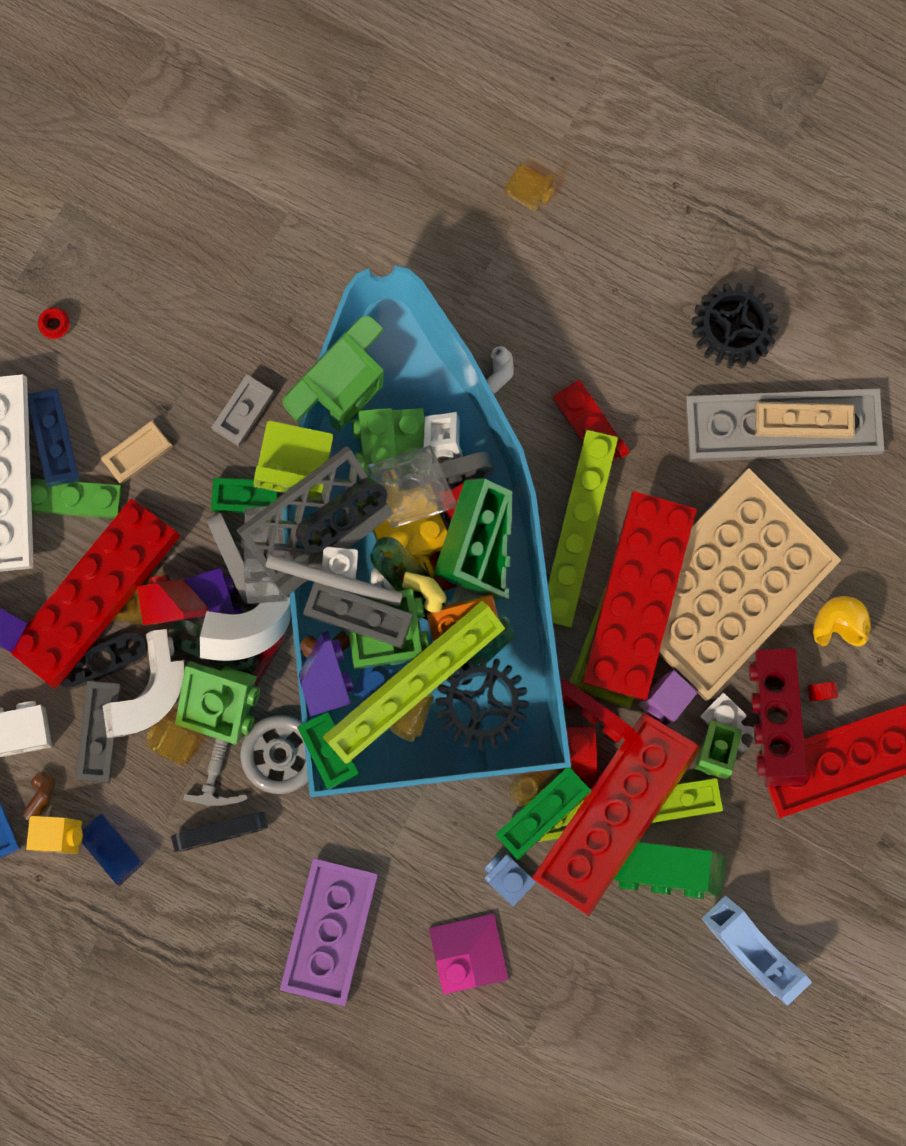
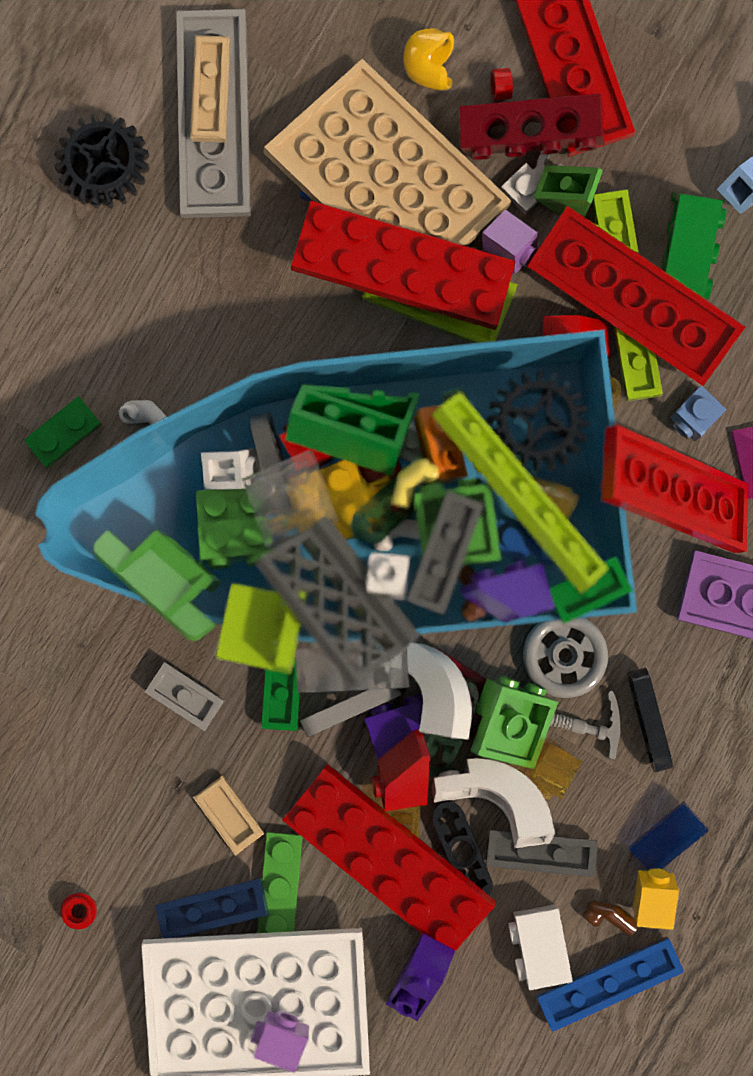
camera: 90 degrees left, 5 degrees up
(326, 513) = (308, 555): black beam -> none
(333, 580) = (406, 579): light grey bar -> none
(426, 842) = (674, 490): none -> red plate
(483, 298) = (62, 432): none -> green plate
(543, 813) = (639, 375): green plate -> none
(580, 525) = (309, 326): lime plate -> none
(584, 414) = (208, 319): red plate -> none
(593, 711) = (526, 318): red plate -> none

